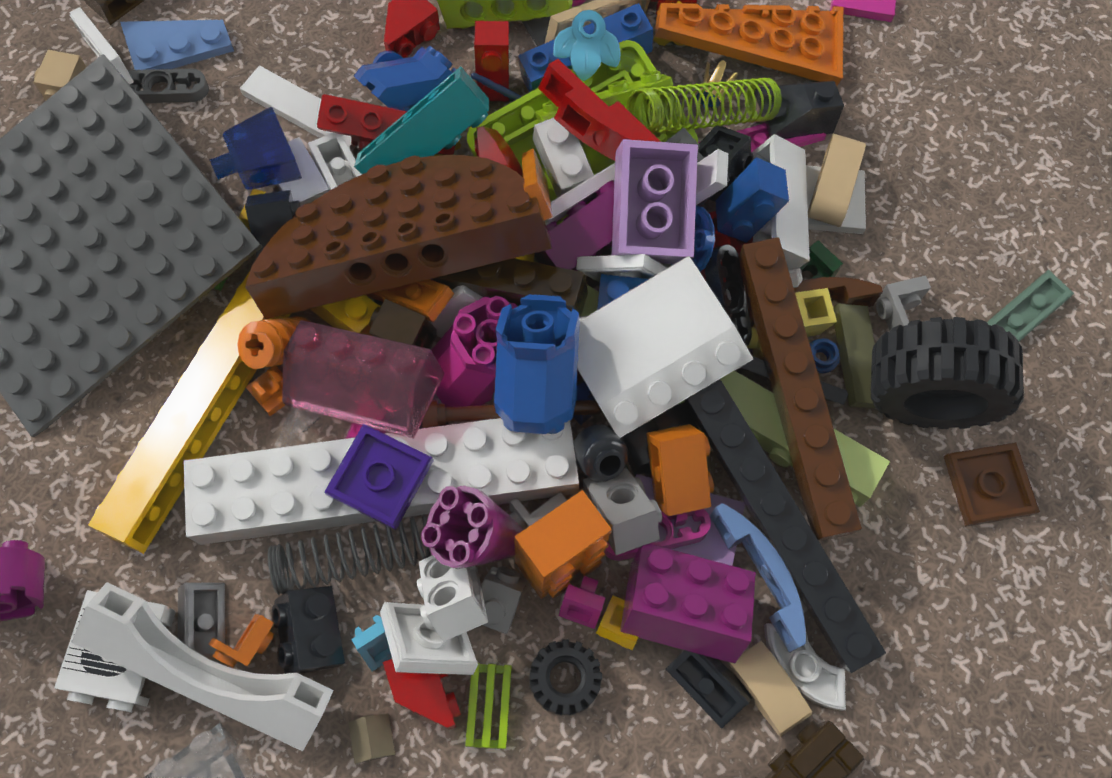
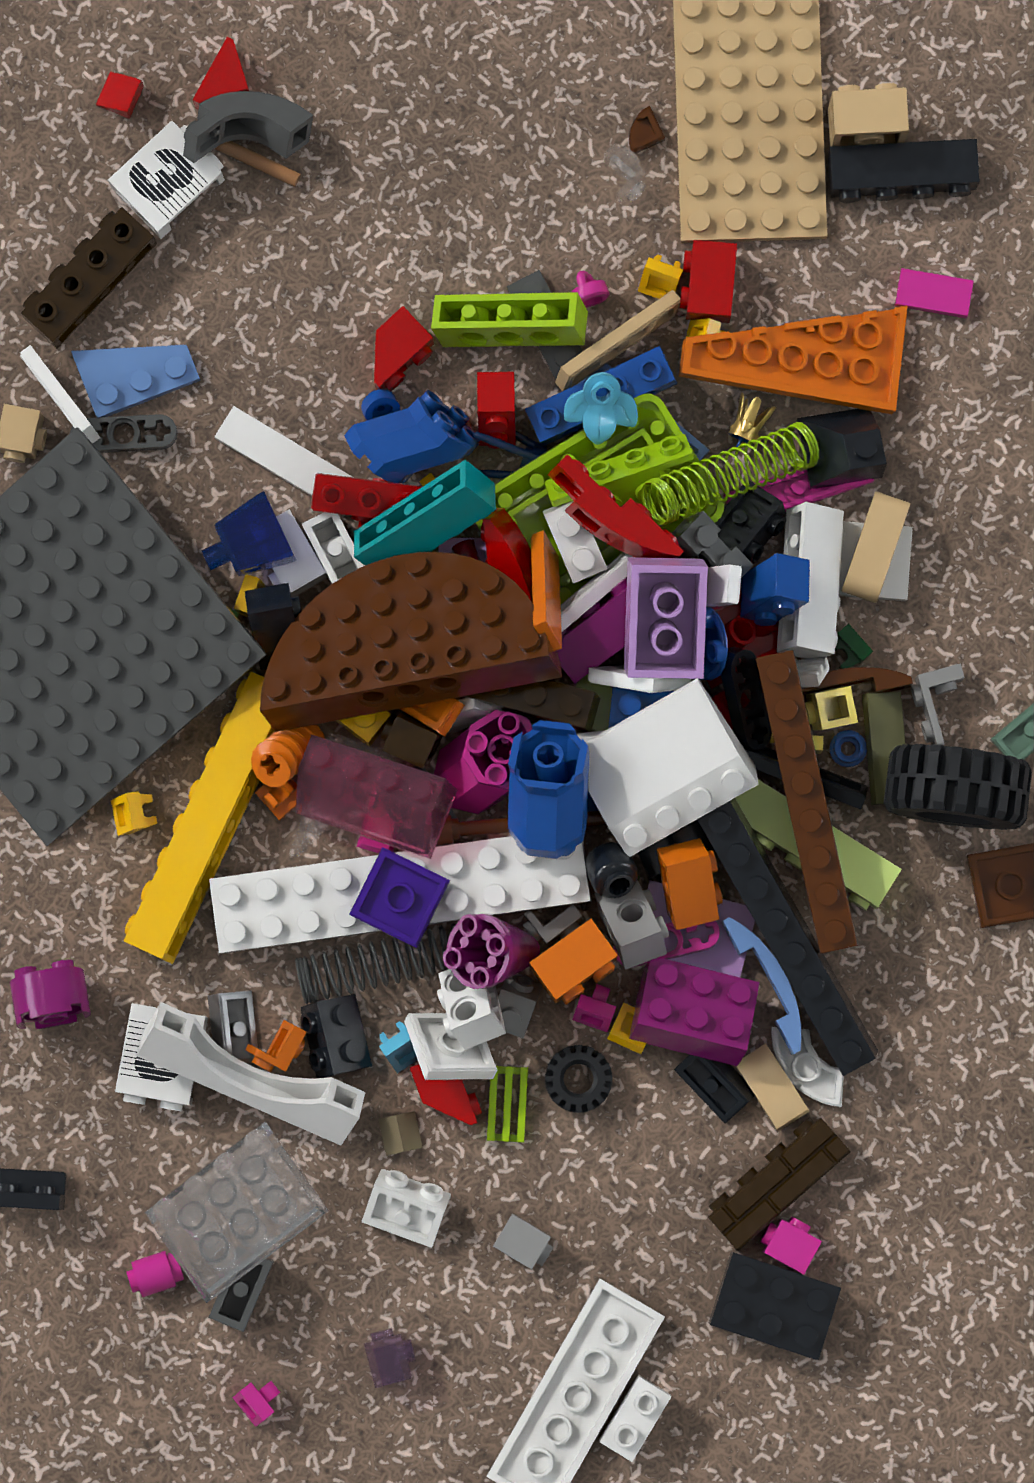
camera: 10 degrees right, 15 degrees up
(117, 406) = (129, 813): none -> yellow tile

